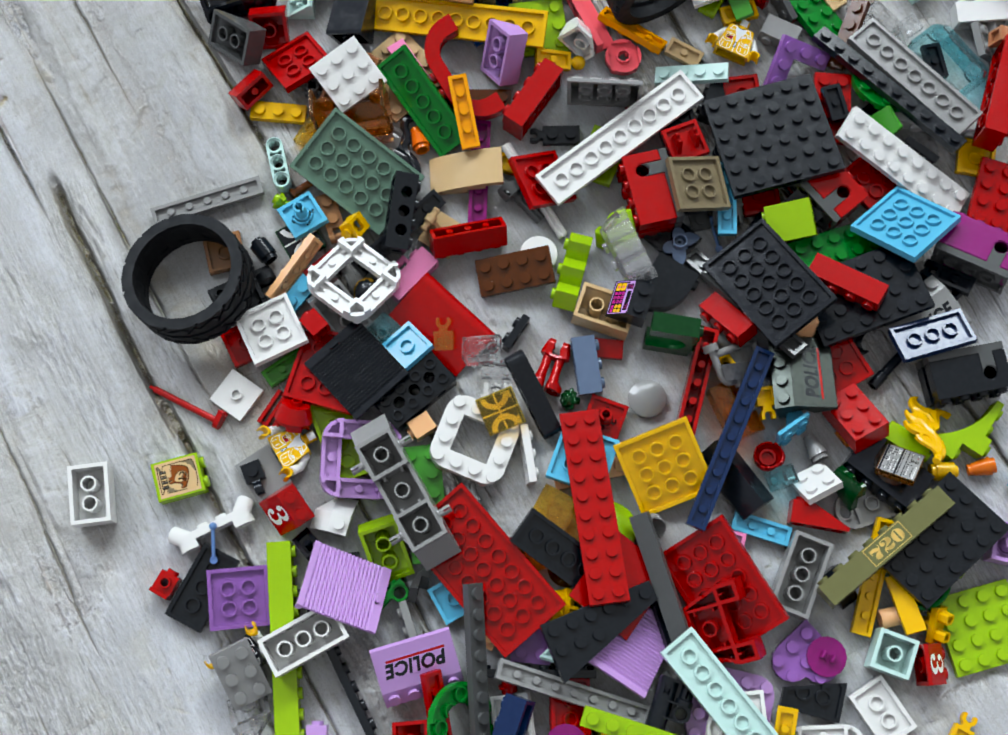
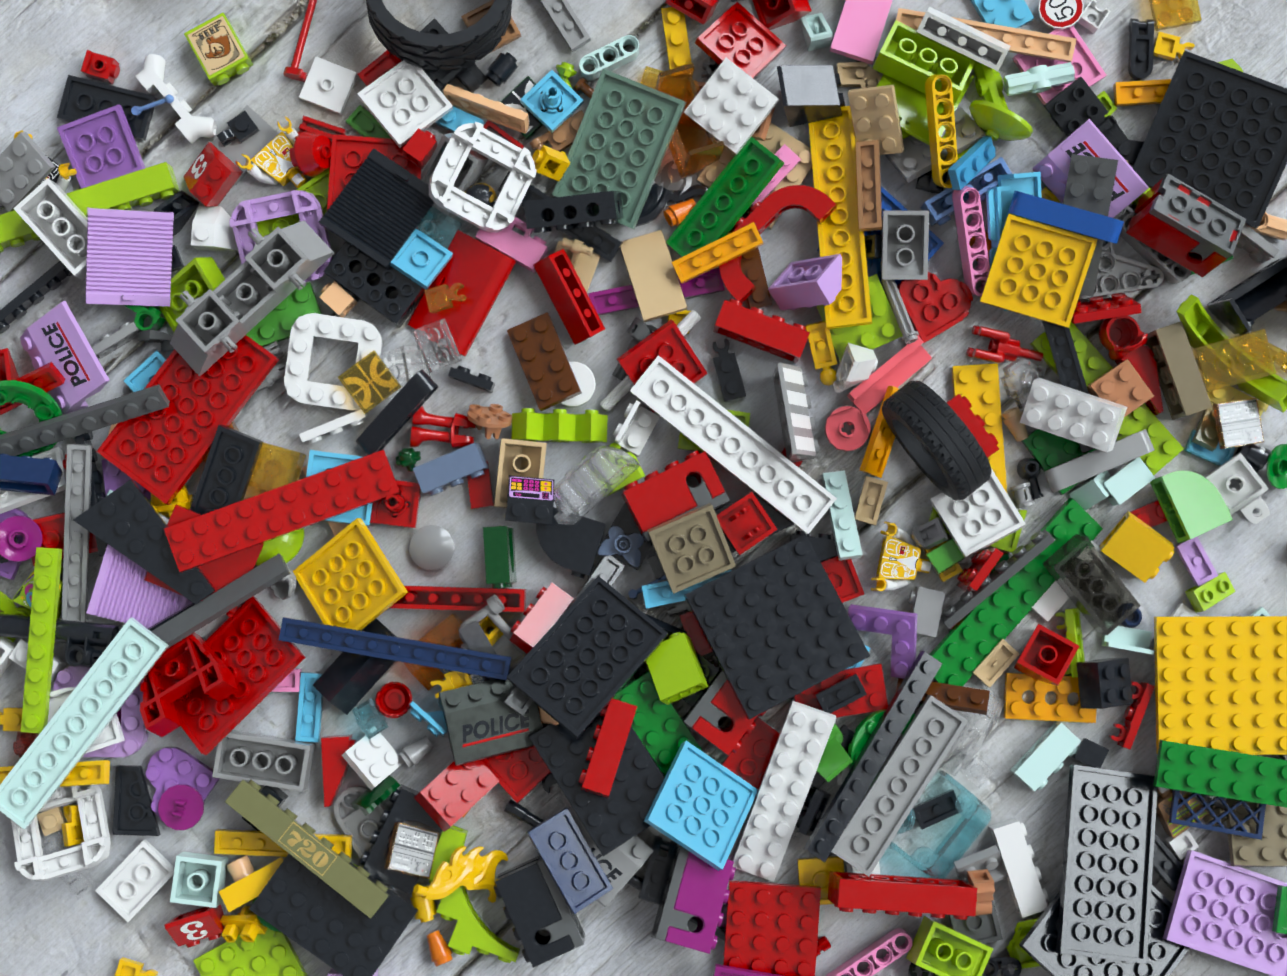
camera: 80 degrees right, 10 degrees up
(552, 322) = (491, 418): none -> nougat plate
(585, 214) = (636, 428): none -> white bracket
(721, 13) = (929, 534): none -> flat silver plate

